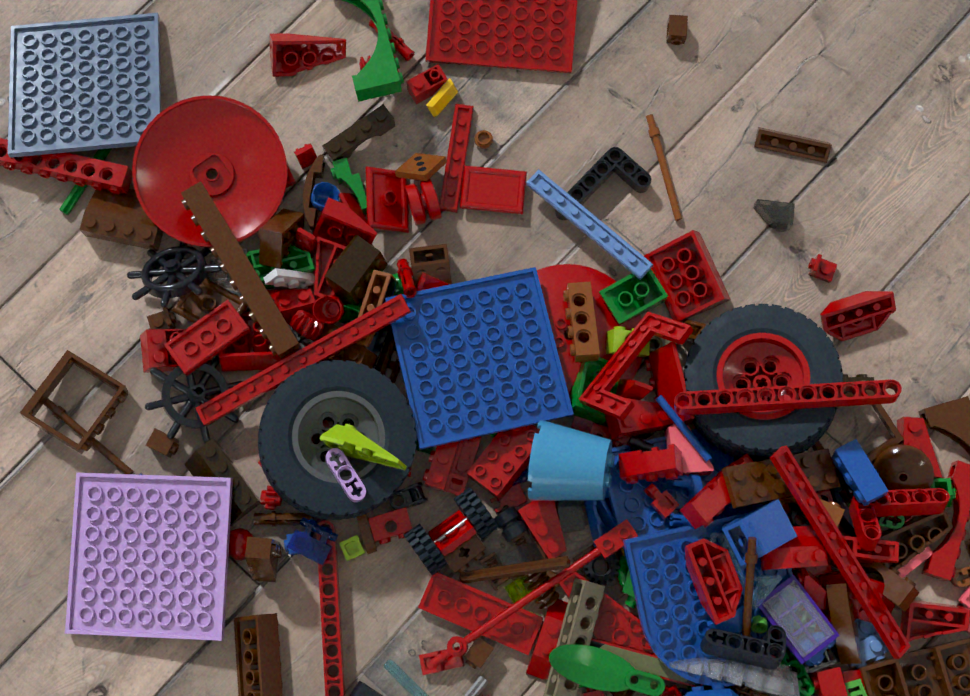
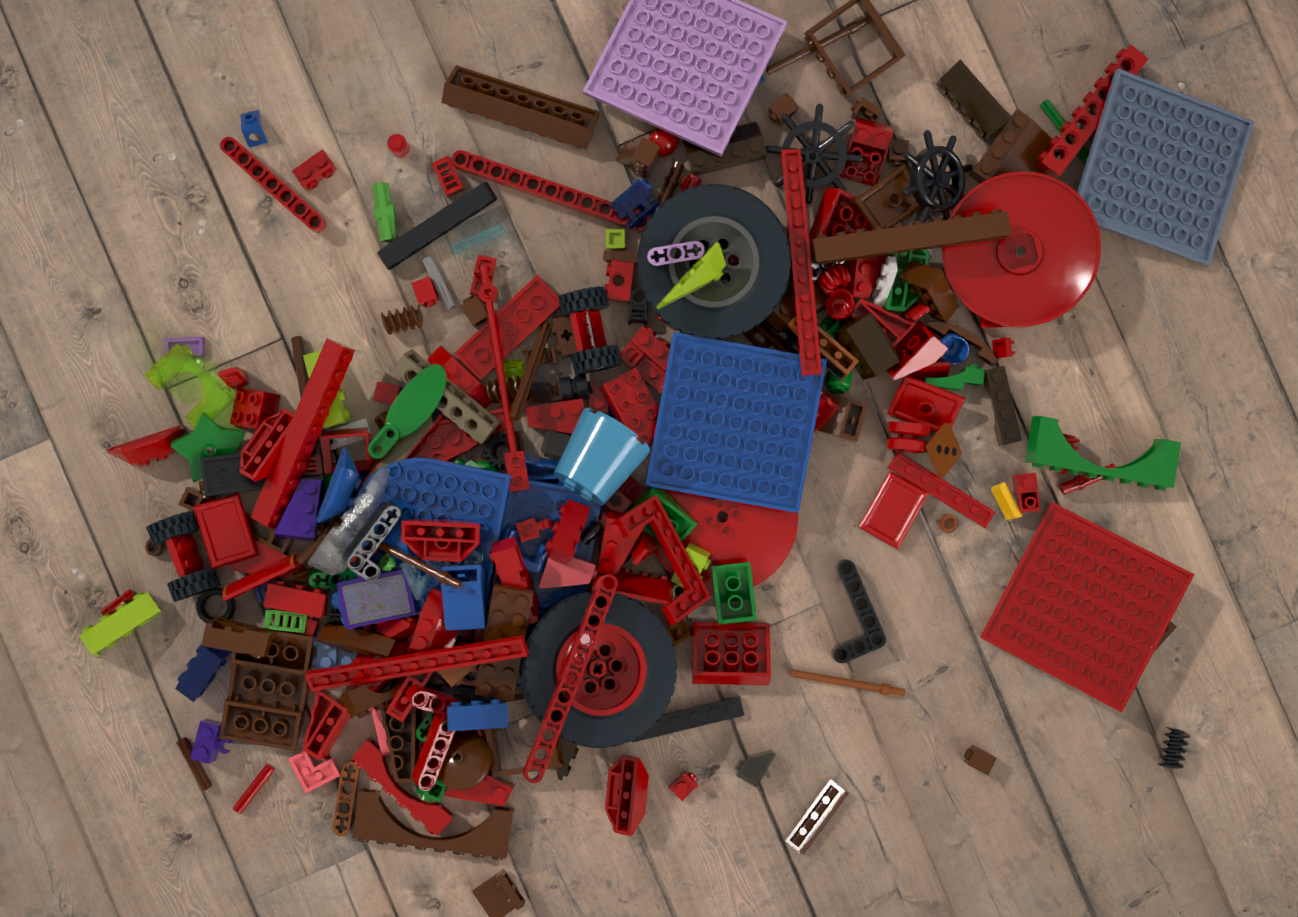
camera: 115 degrees right, 10 degrees up
(87, 272) = (972, 100): none -> dark brown slope
(131, 364) = (868, 109): none -> reddish brown bracket
(207, 337) = (861, 184): red tile -> none
(302, 52) = (1110, 385): red wedge -> none
(405, 274) = (844, 390): red pin -> none
(581, 293) = (757, 535): dark orange brick -> none
(589, 224) = (819, 582): medium blue tile -> none
(683, 428) = (587, 577): blue bar -> none
(751, 277) = (695, 717): none -> black plate

